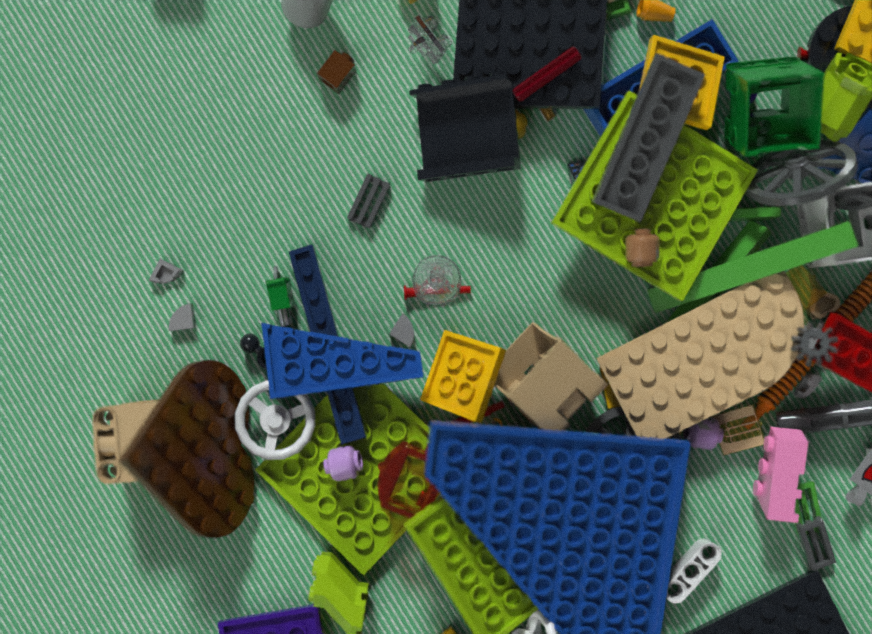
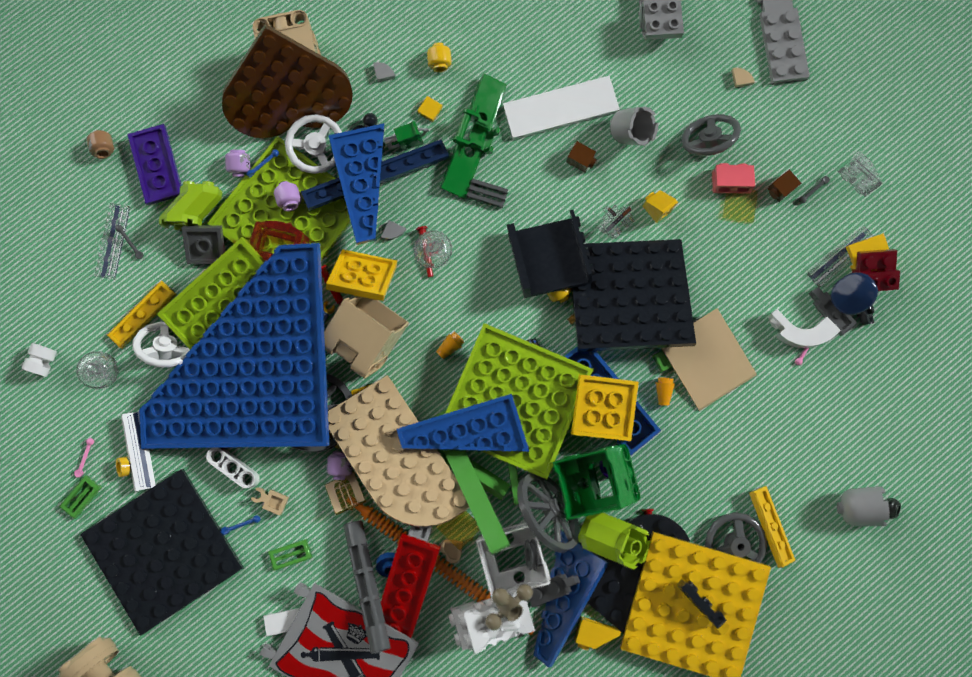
camera: 85 degrees right, 5 degrees down
(165, 272) = (416, 55): light grey tile -> none
(174, 241) = (439, 57): none -> yellow head
(243, 262) = (430, 109): none -> yellow tile
(264, 89) = (561, 107): none -> white tile
(279, 474) = (250, 173): none -> blue hinge
(285, 526) = (237, 162): none -> lavender head
(330, 230) = (461, 167): none -> green piece
(393, 581) = (203, 243): none -> dark grey plate
(547, 73) = (597, 306): dark red axle -> none
(564, 273) = (451, 344): none -> light orange cone
(642, 248) = (471, 392): medium nougat head -> none
(648, 137) = (555, 384): dark grey plate -> none
(688, 248) = (476, 427): none -> blue wing
(738, 522) = (273, 501): none -> tan plate
(765, 587) = (225, 530): none -> blue hinge
(779, 473) = (312, 526): bright pink wedge -> none
(807, 385) = (385, 543): light grey tile -> none
(809, 526) = (276, 557): dark grey tile -> none
(815, 334) = (403, 532): dark grey gear -> none
(833, 386) = (384, 563): none -> blue plate

